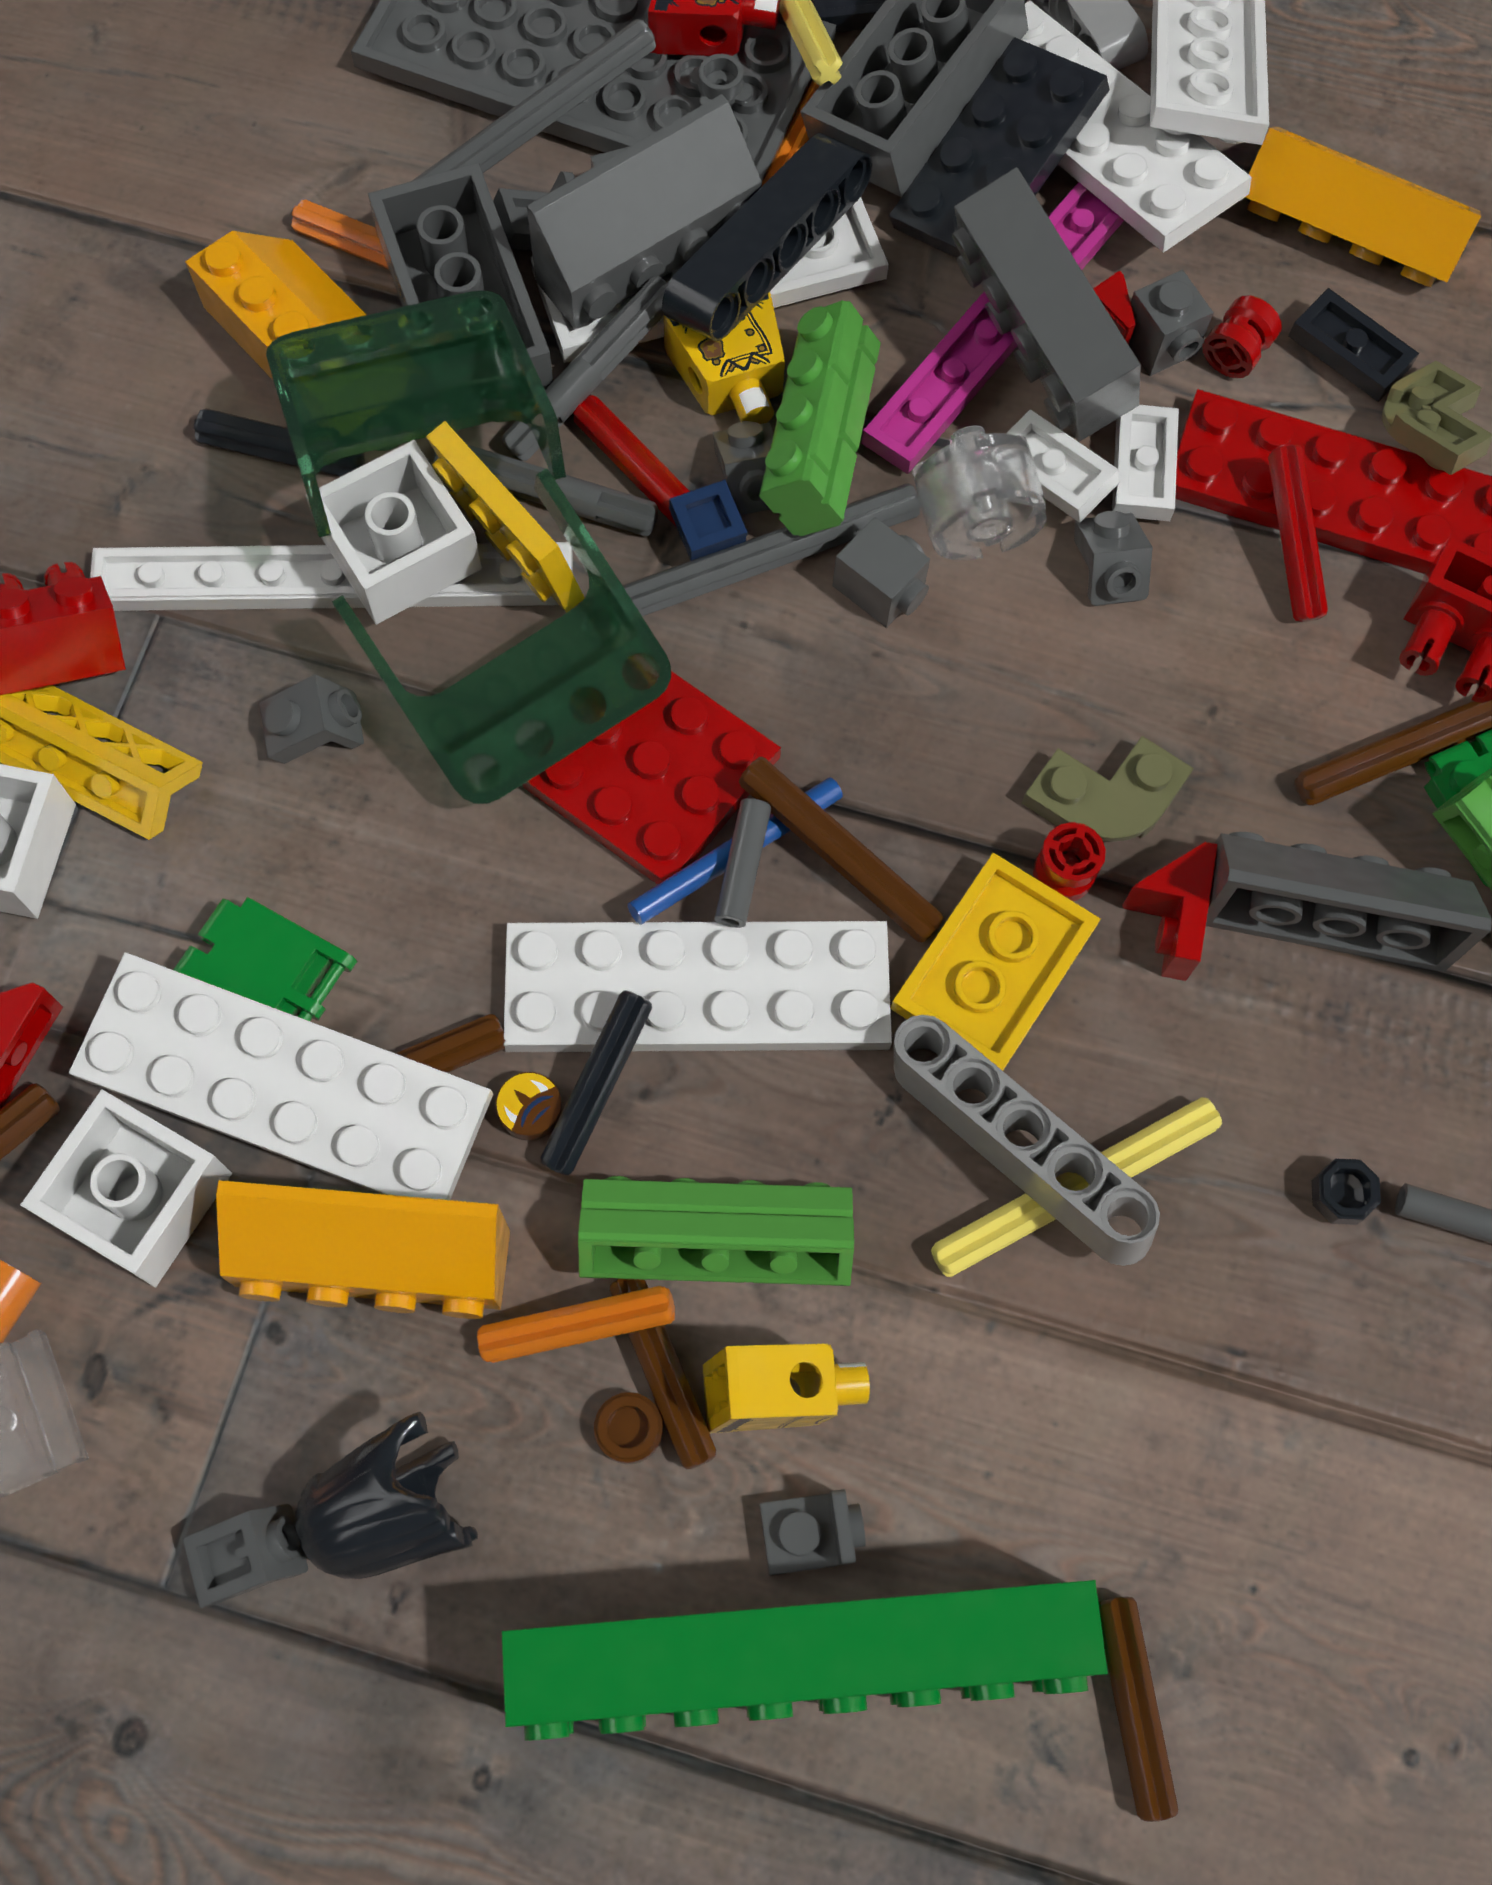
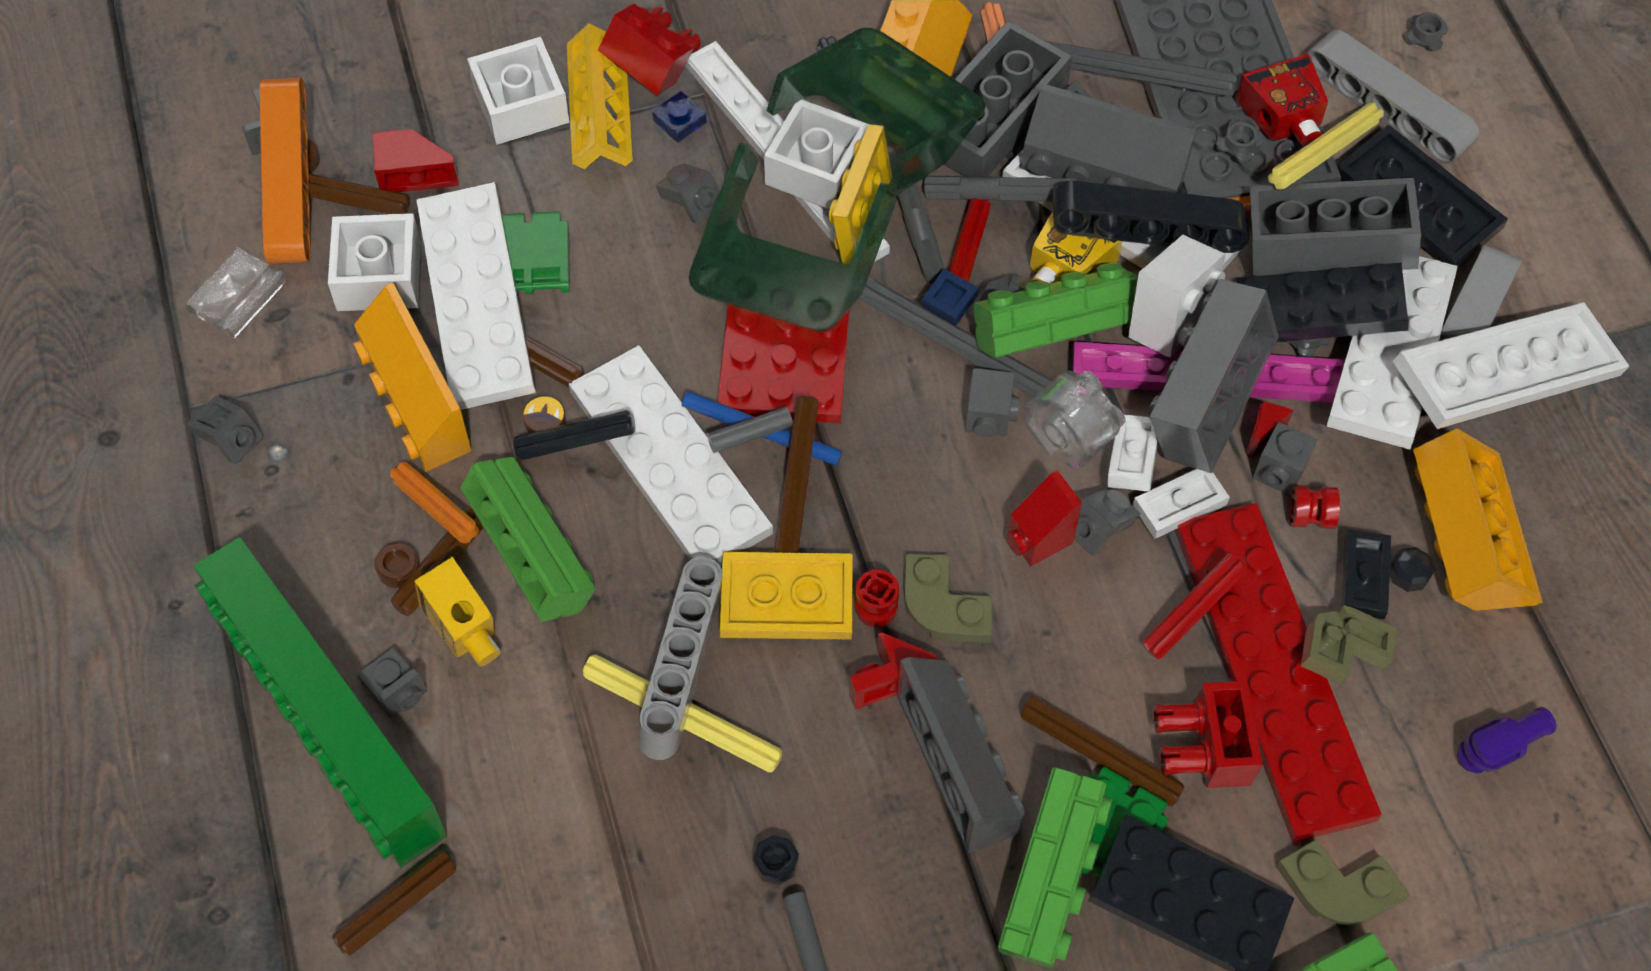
camera: 60 degrees right, 10 degrees down
(176, 664) = (679, 116): none -> clear blue plate
(378, 1518) = (264, 467): black hair -> none
(902, 277) = (1173, 293): none -> white brick
(1095, 611) = (1044, 520): none -> red slope
(1373, 295) = (1411, 569): none -> black tile

